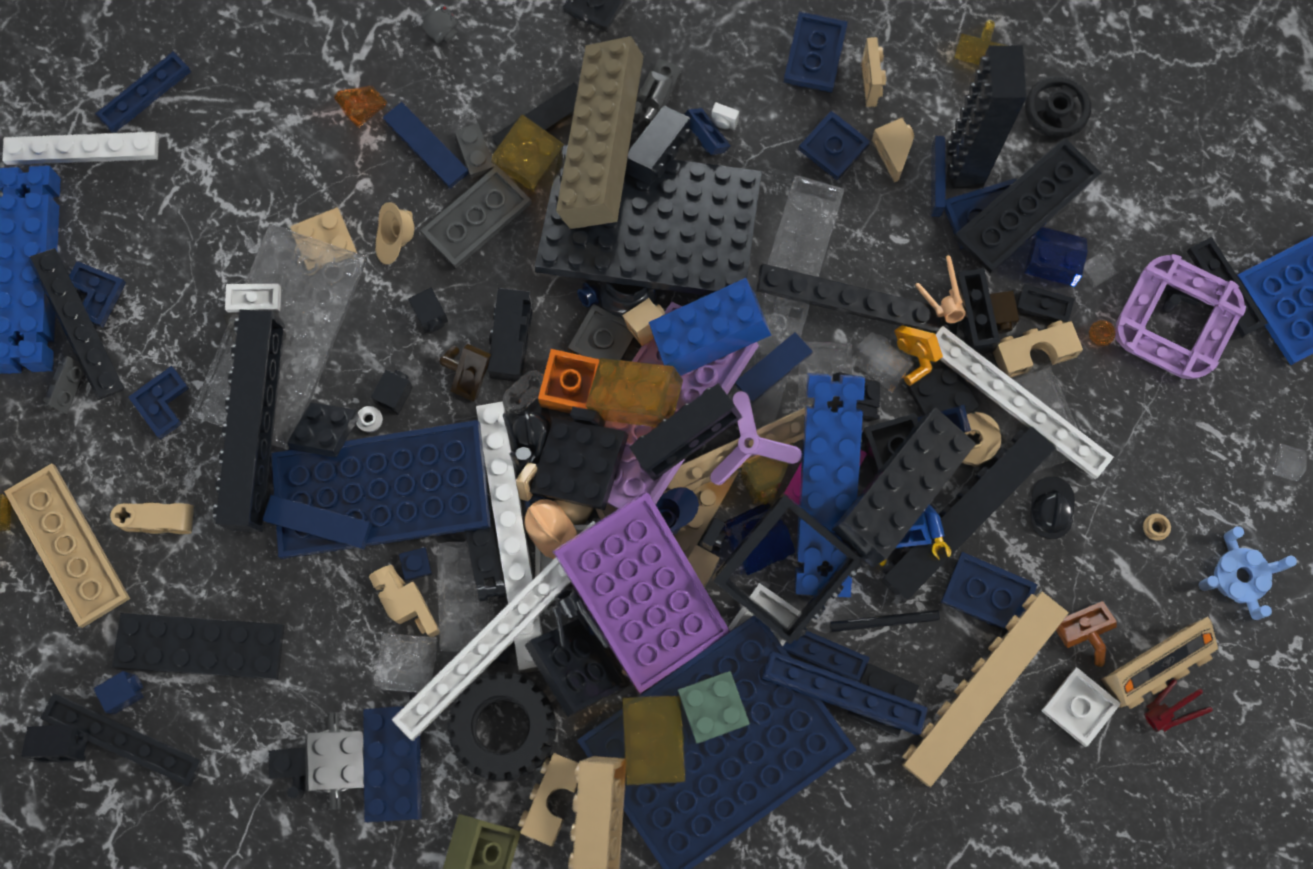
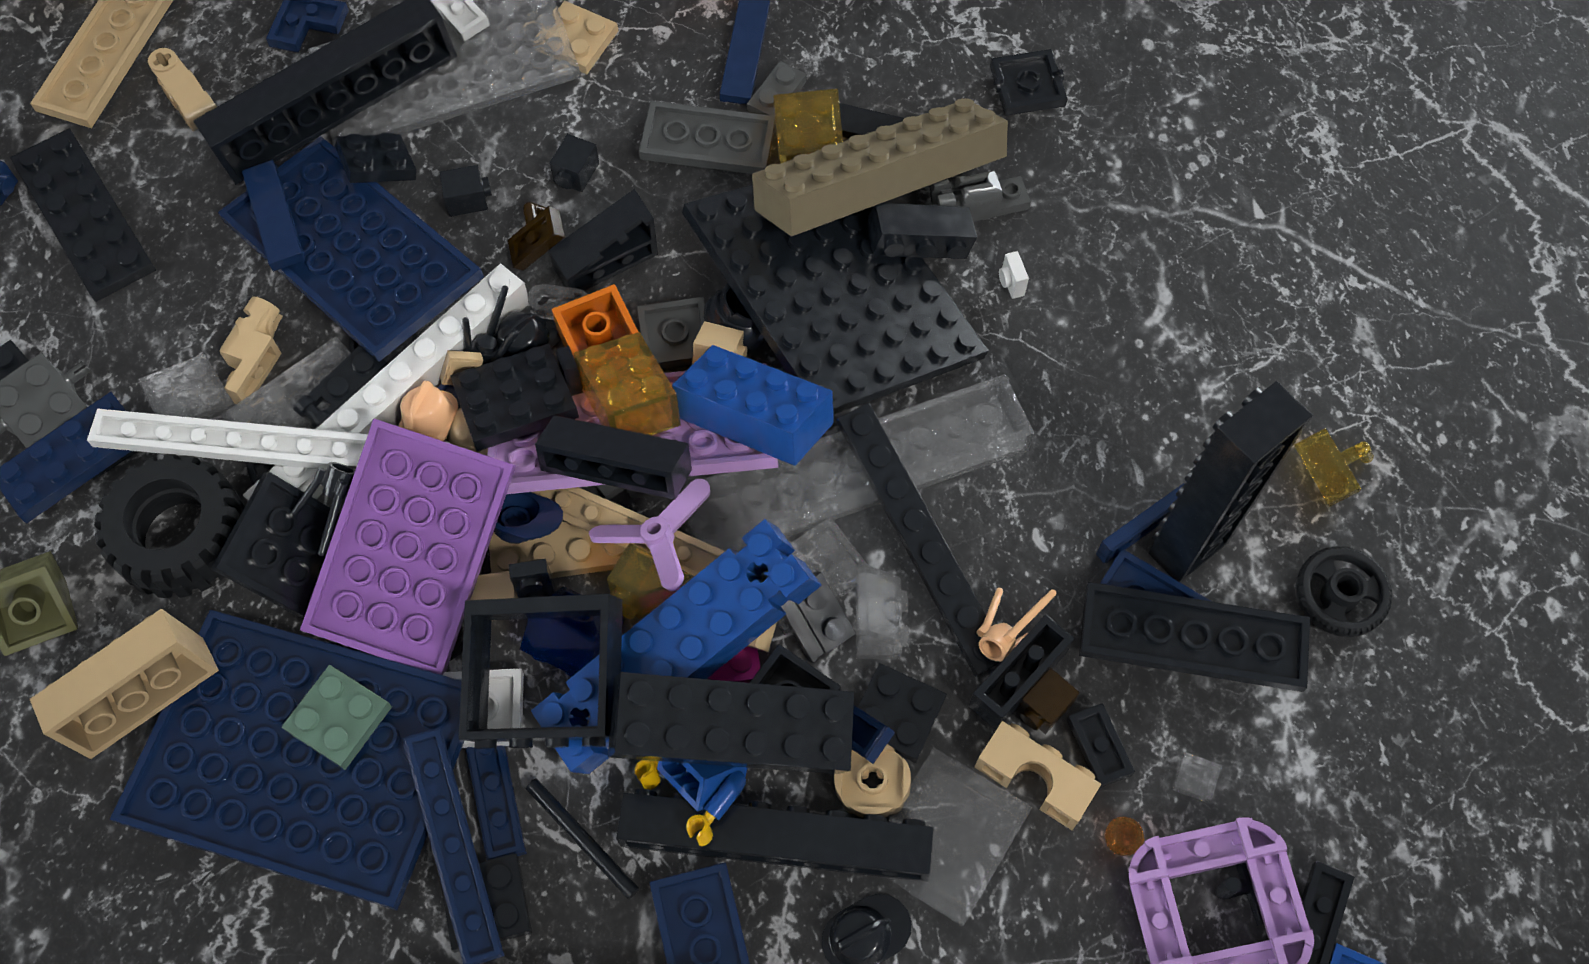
camera: 50 degrees right, 10 degrees down
(372, 426) = (422, 200): white plate -> none
(393, 232) = (634, 83): tan piece -> none
(415, 564) = (301, 335): dark blue plate -> none
(539, 821) = (96, 630): tan arch -> none
(588, 295) = (711, 286): dark blue plate -> none
(653, 740) = (251, 679): clear yellow slope -> none
(707, 132) = (982, 270): dark blue plate -> none
(773, 367) = (767, 501): dark blue tile -> none
(815, 52) = (1167, 309): dark blue plate -> none
(834, 145) = (1081, 398): dark blue plate -> none
(872, 74) = (1195, 369): tan plate -> none
(893, 145) = (1137, 457): tan slope -> none
(918, 344) = (925, 639): light orange plate -> none
(1022, 404) = (954, 801): white plate -> none
(1057, 256) = (1169, 715): clear blue slope -> none

